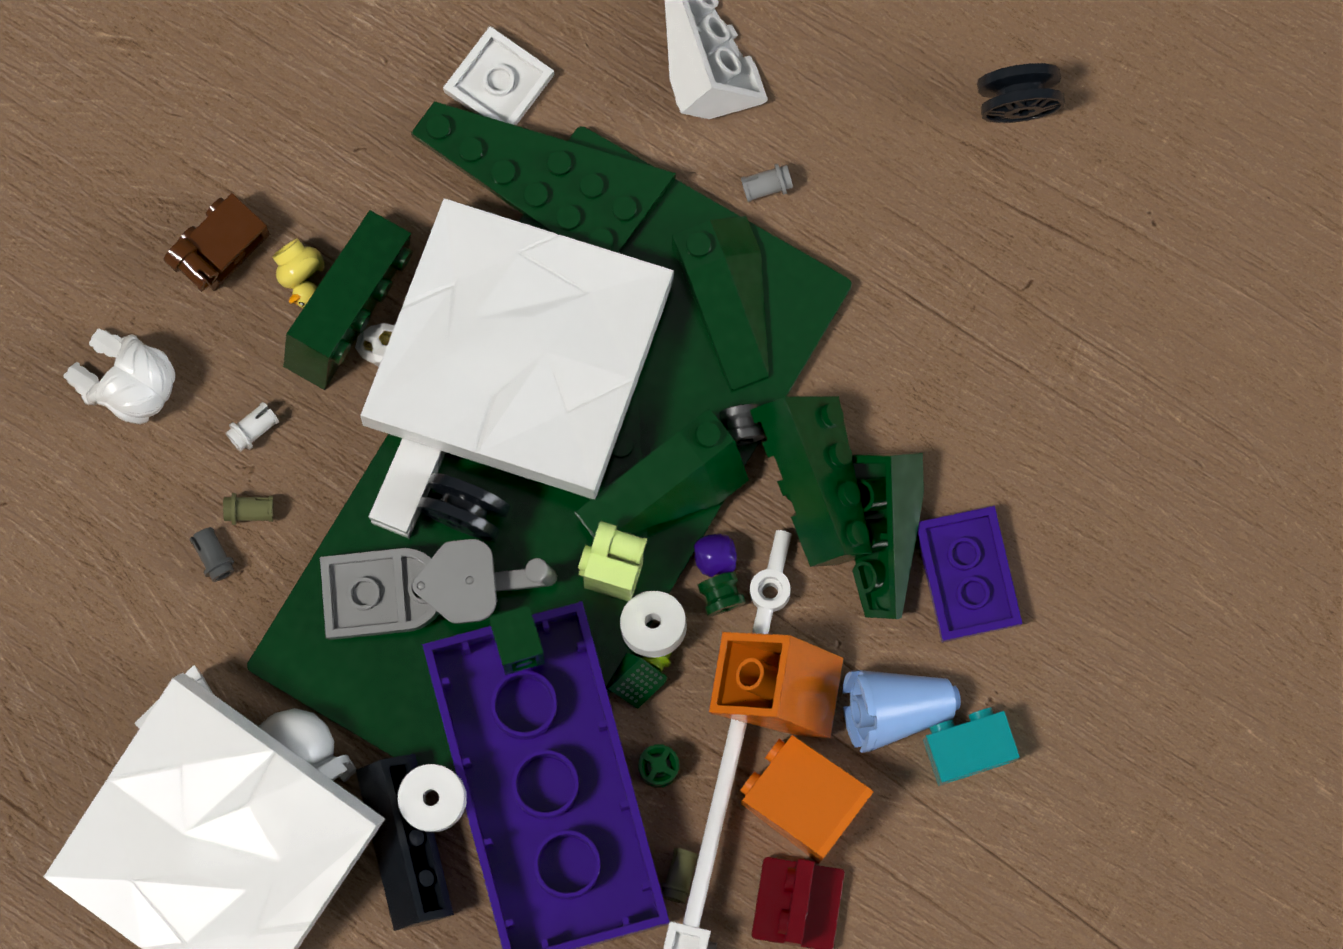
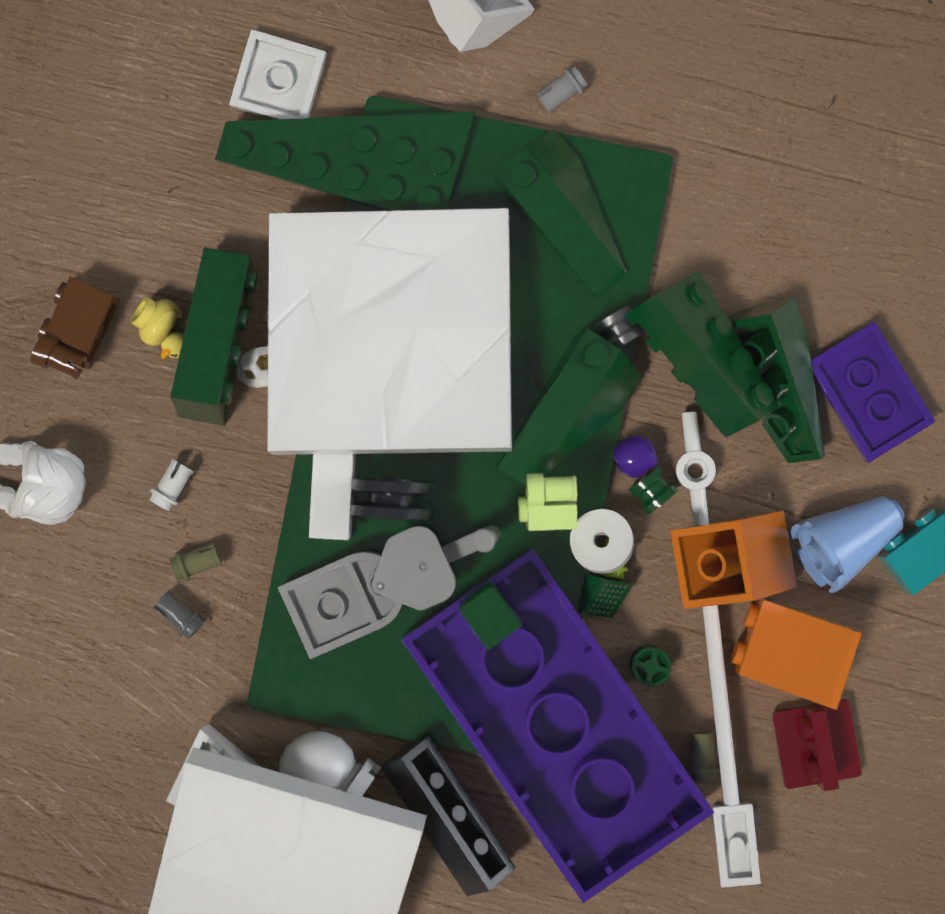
camera: 15 degrees left, 10 degrees up
(413, 793) = (454, 794): white piece -> none

